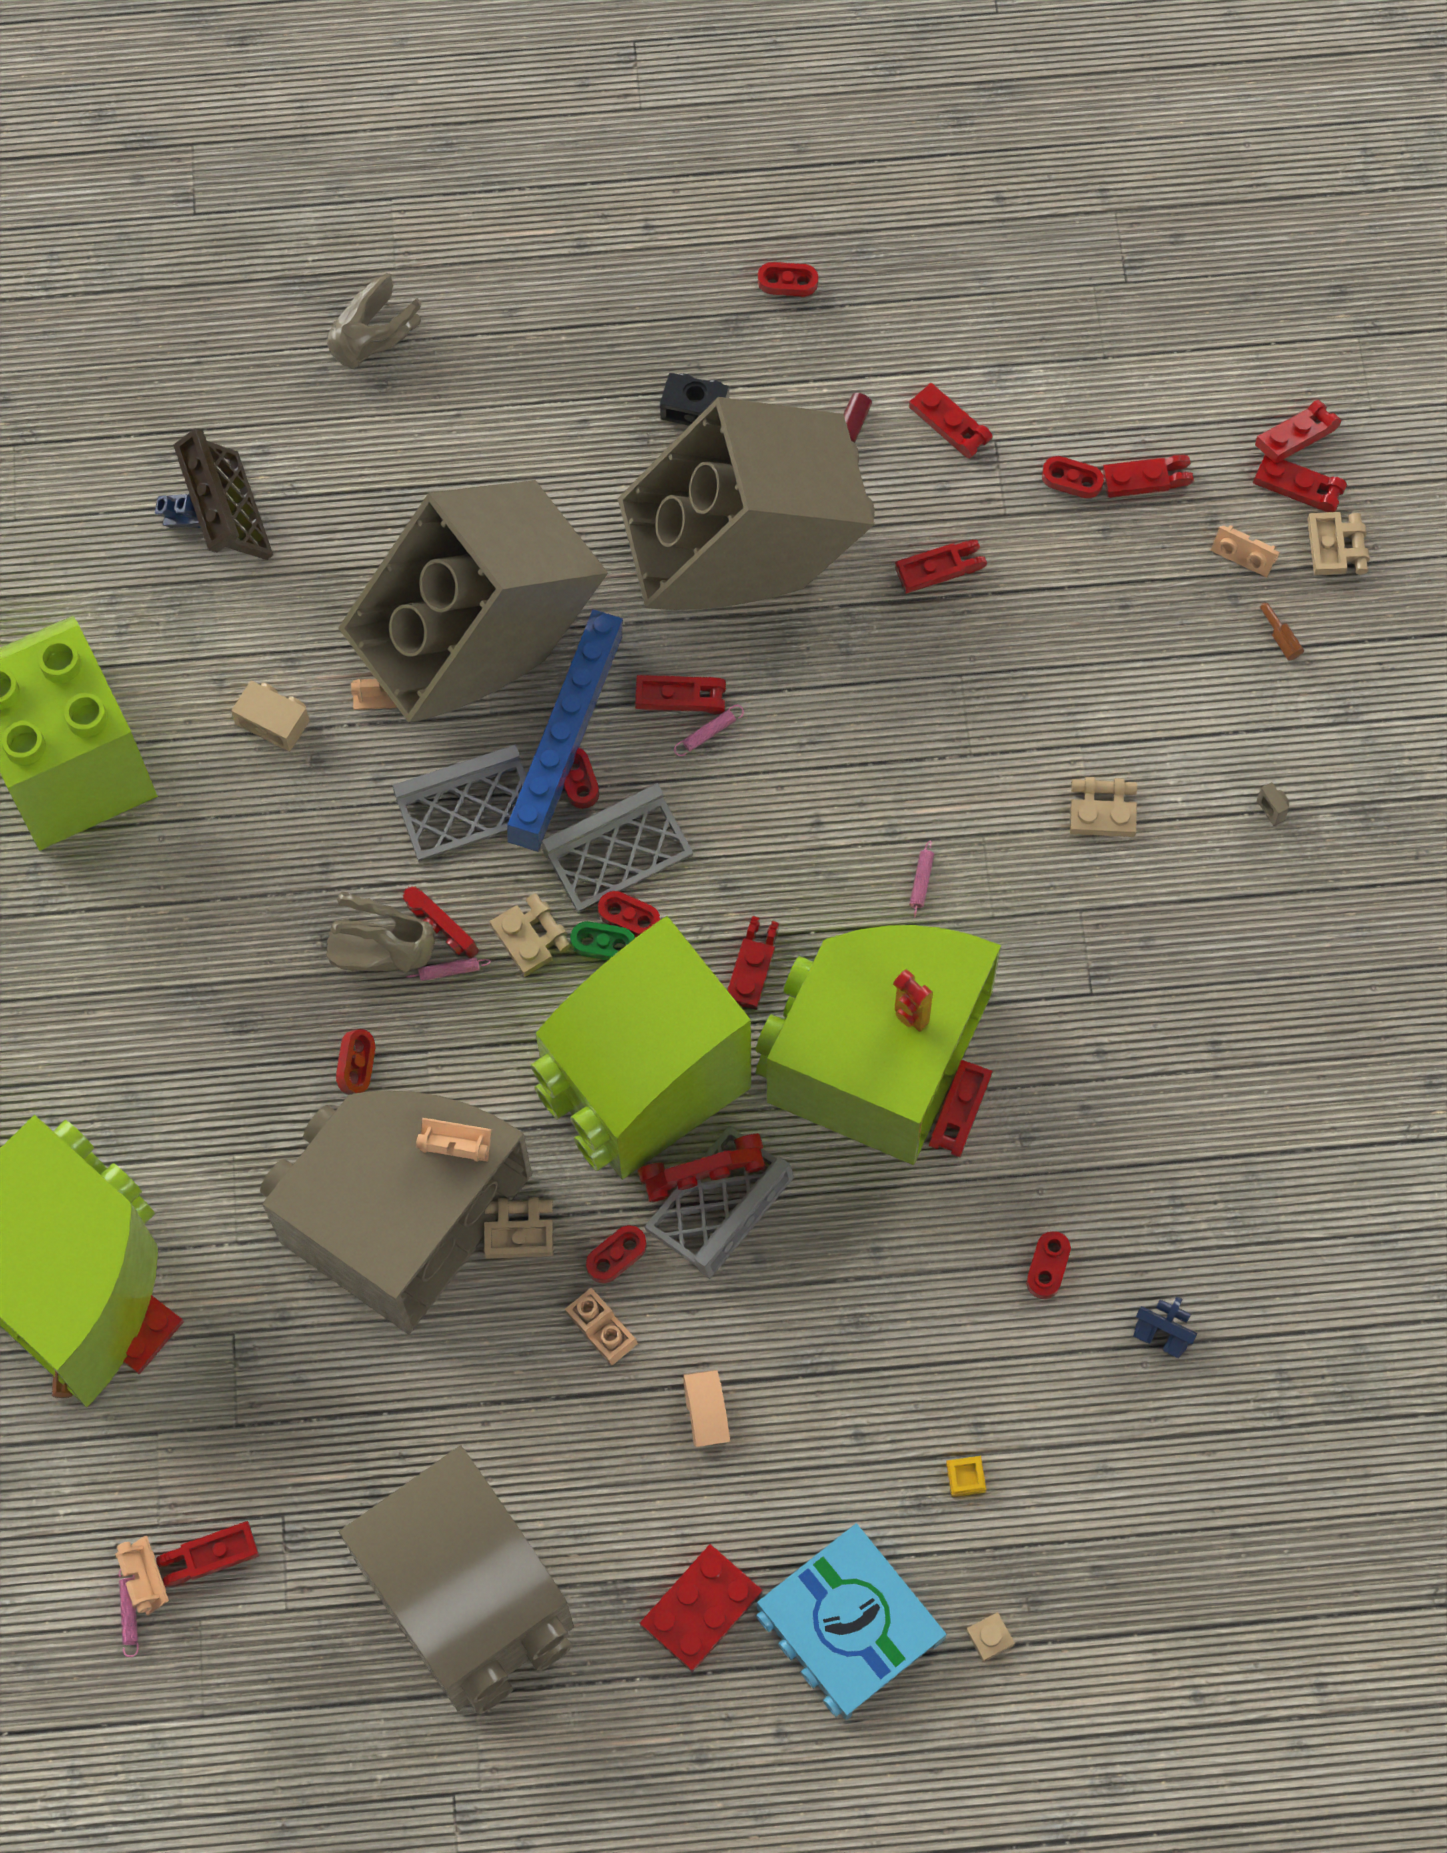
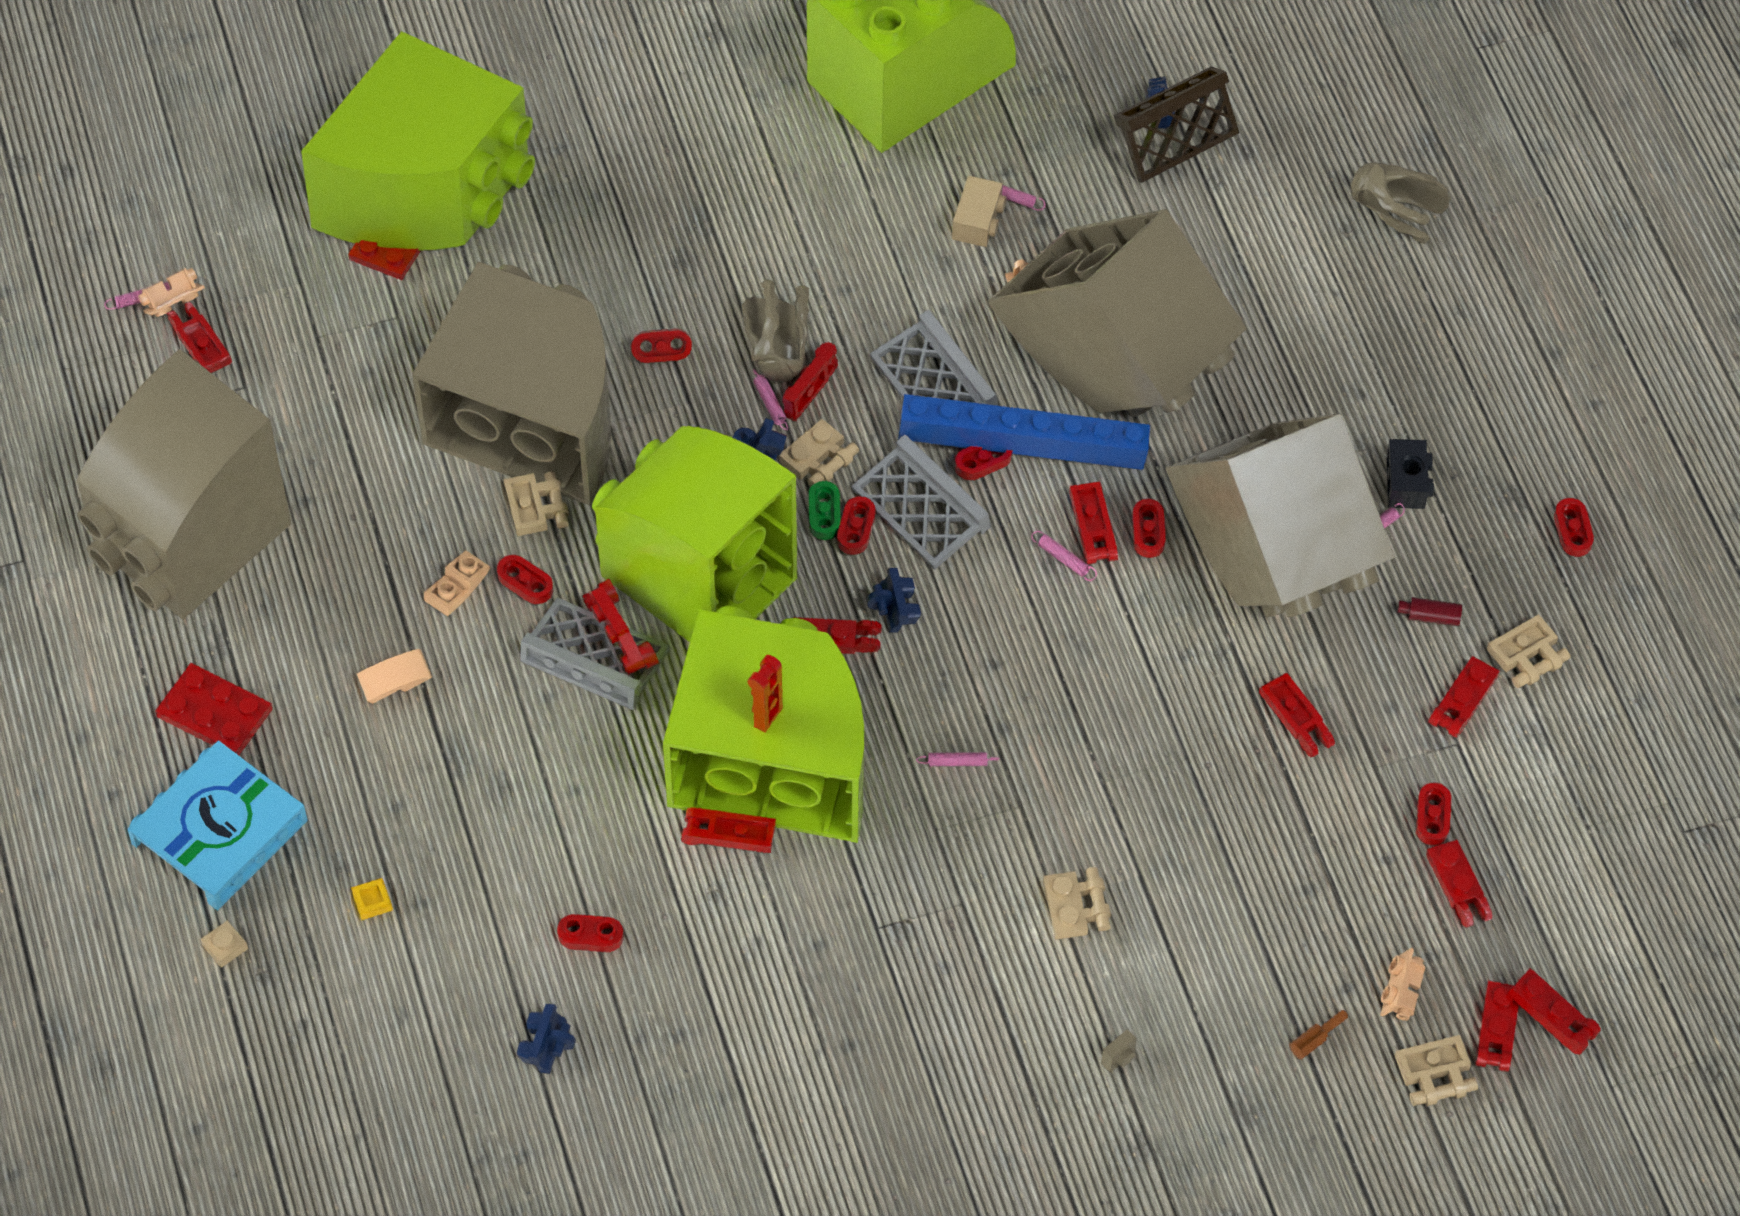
camera: 75 degrees right, 10 degrees down
(257, 676) = (1020, 197): none -> bright pink piece
(454, 1139) = (560, 381): light nougat hinge -> none
(517, 983) = (765, 440): none -> dark blue hips
(700, 642) = (1148, 530): none -> red plate
(729, 897) = (889, 600): none -> dark blue hips
(906, 356) = (1523, 643): none -> tan plate

